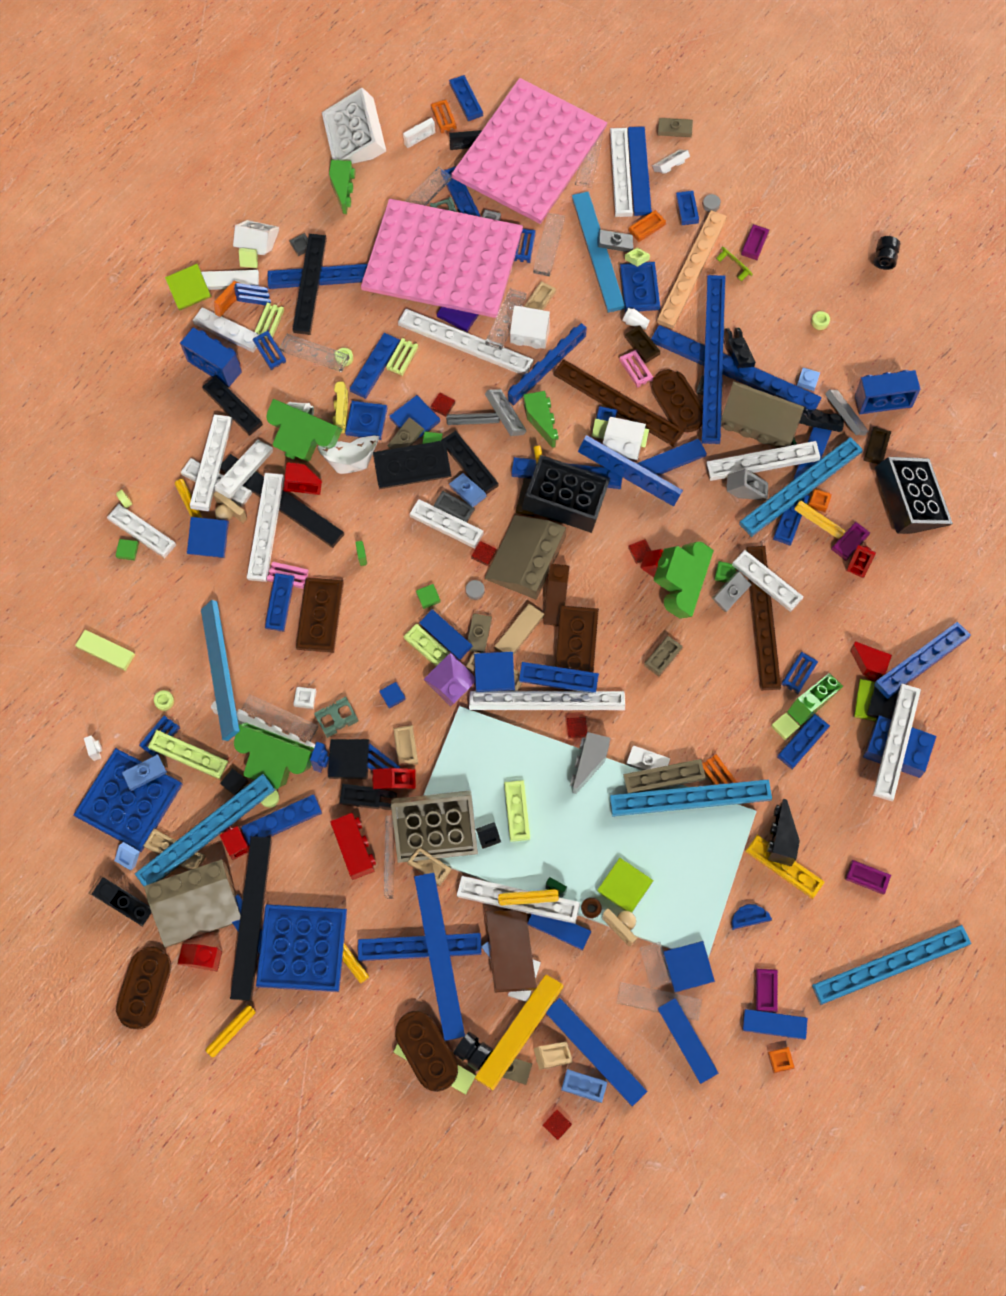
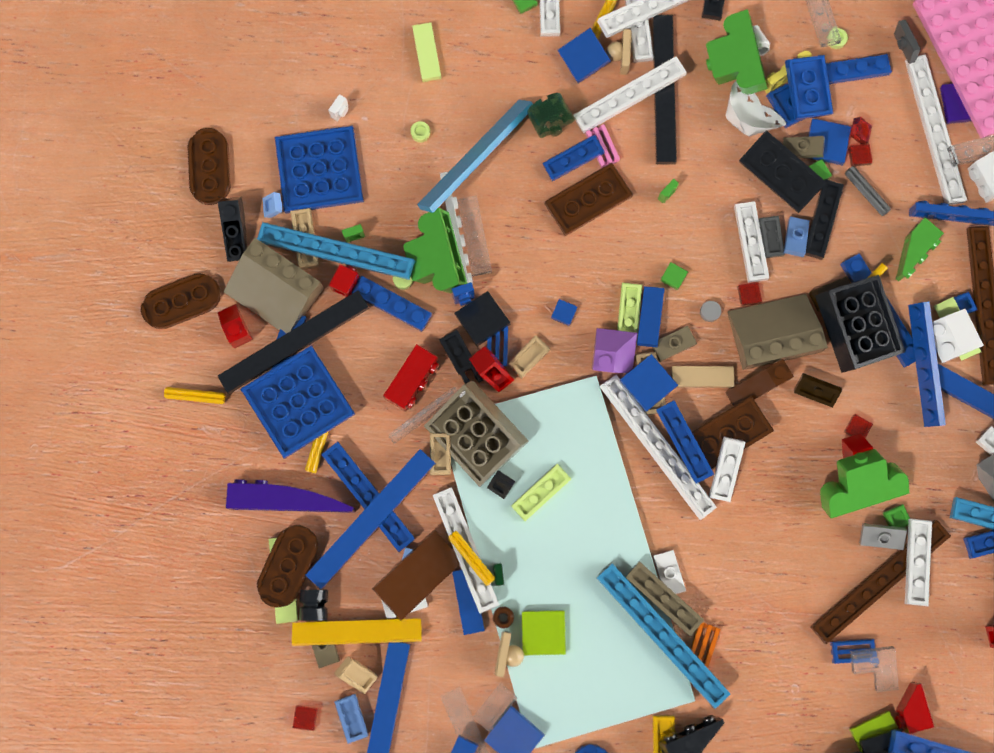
camera: 50 degrees right, 10 degrees up
(52, 885) = (208, 166): none -> reddish brown tile
(144, 772) = (348, 164): medium blue plate -> none
(159, 725) = (393, 148): blue tile -> none
(188, 754) = (389, 186): yellowish green tile -> none
(202, 808) = (353, 233): none -> bright green tile
(234, 594) = (550, 115): none -> clear green brick
(234, 782) = (394, 241): black tile -> none
(243, 469) = (666, 36): white plate -> none
(301, 479) = (694, 90): red slope -> none
(305, 697) = (507, 242): white tile -> none
(339, 723) = (507, 287): sand green piece -> none
(365, 401) = (809, 87): none -> blue tile
(368, 1017) = (279, 498): none -> dark purple slope
(386, 313) = (907, 41): none -> dark grey plate
(414, 347) = (889, 77): yellowish green tile -> none
(425, 390) = (861, 130): none -> clear red plate
(505, 412) = (895, 214): light grey tile -> none
(576, 727) = (653, 489): clear red tile -> none
(591, 558) = (817, 390): none -> dark brown plate
(592, 758) = (635, 523): light grey slope -> none
(601, 662) = (727, 469): none -> white tile
(663, 656) = (775, 518): dark tan plate -> none
(785, 726) = (793, 673): yellowish green tile -> none
(803, 741) = (791, 698): blue tile -> none
(814, 698) = (838, 682): bright green slope -> none
(821, 659) = (881, 662): none -> clear tile

